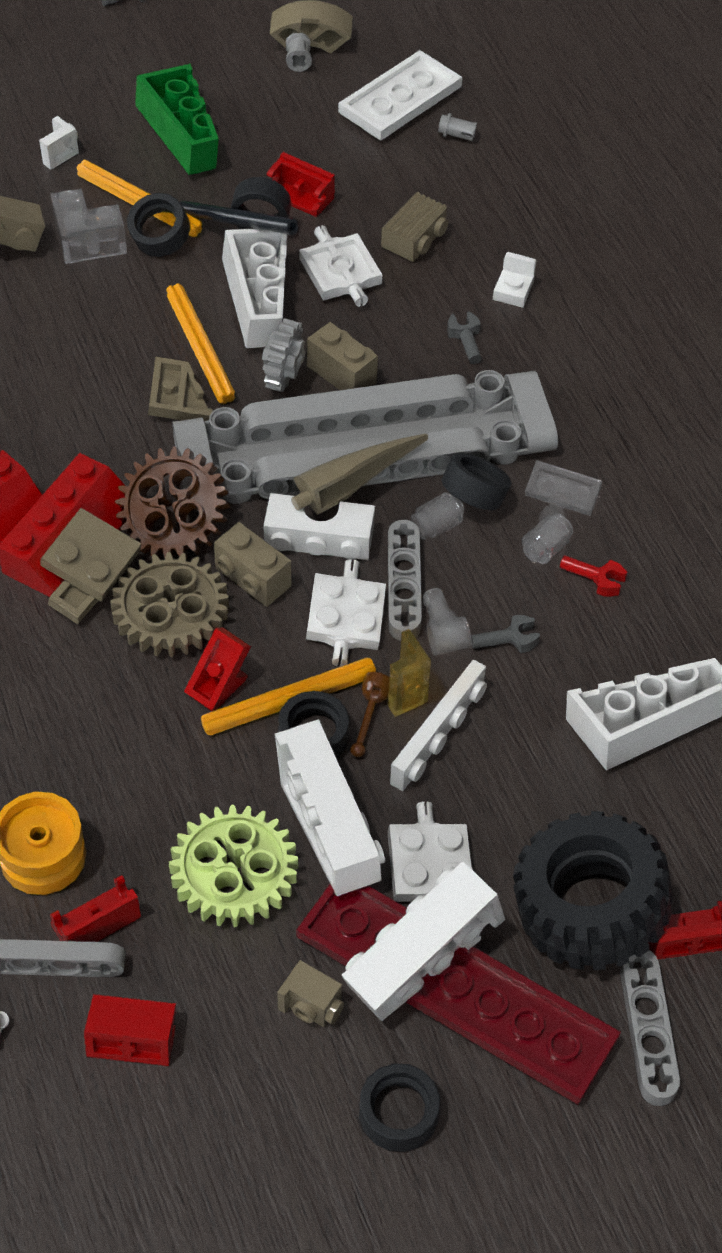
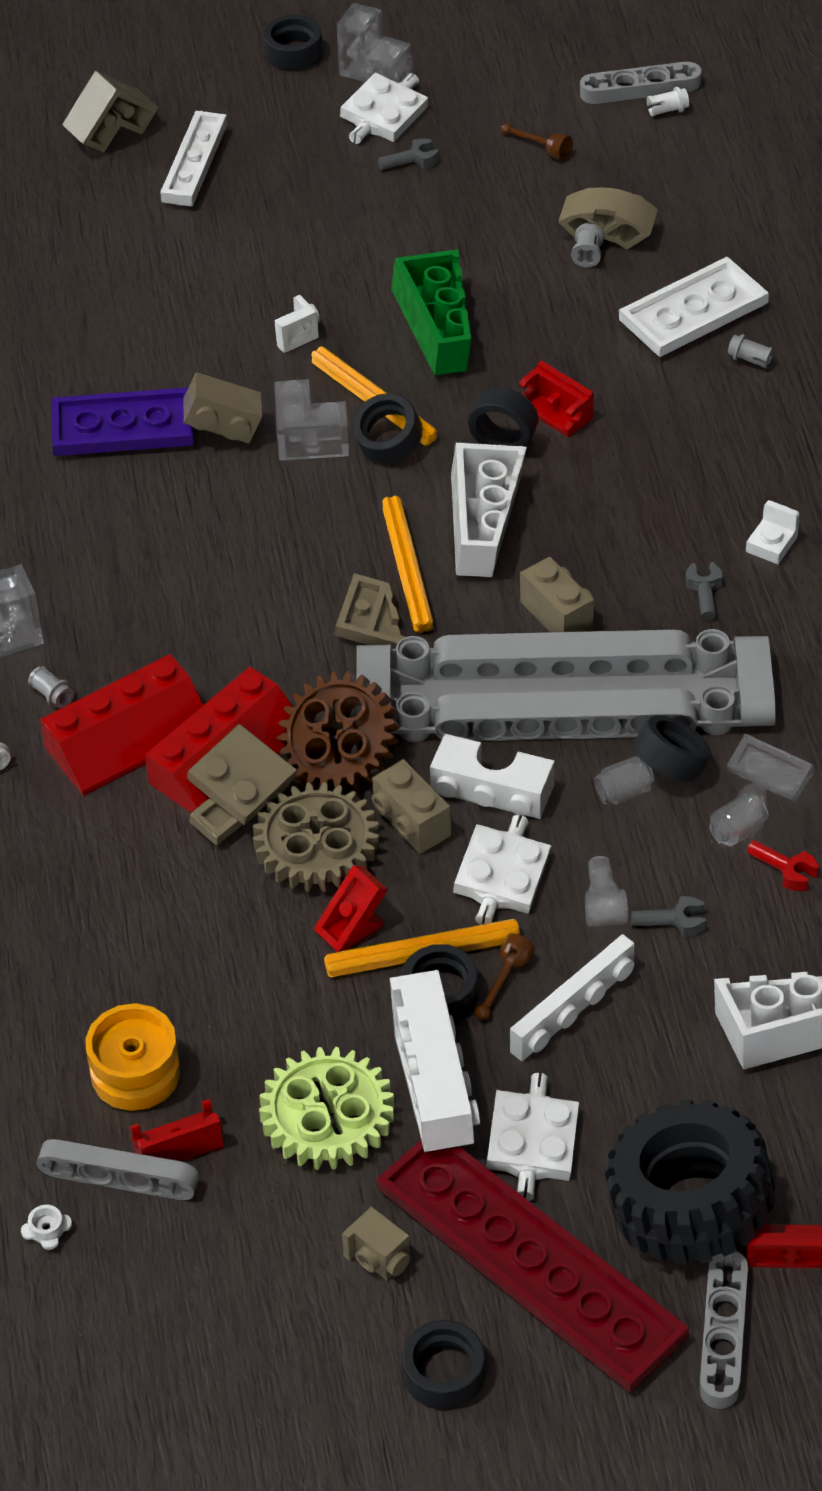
camera: 15 degrees right, 5 degrees down
(130, 1030) = (189, 1250): red hinge -> none
(241, 217) = (475, 430): black piece -> none
(283, 355) = (491, 587): light grey gear -> none
(340, 266) = (580, 496): white plate -> none
(343, 476) = (526, 725): dark tan piece -> none
(406, 579) = (572, 843): light grey beam -> none
(409, 676) = (548, 944): clear yellow panel -> none
(415, 227) = (673, 460): dark tan brick -> none
(423, 940) = (501, 1204): white wedge -> none

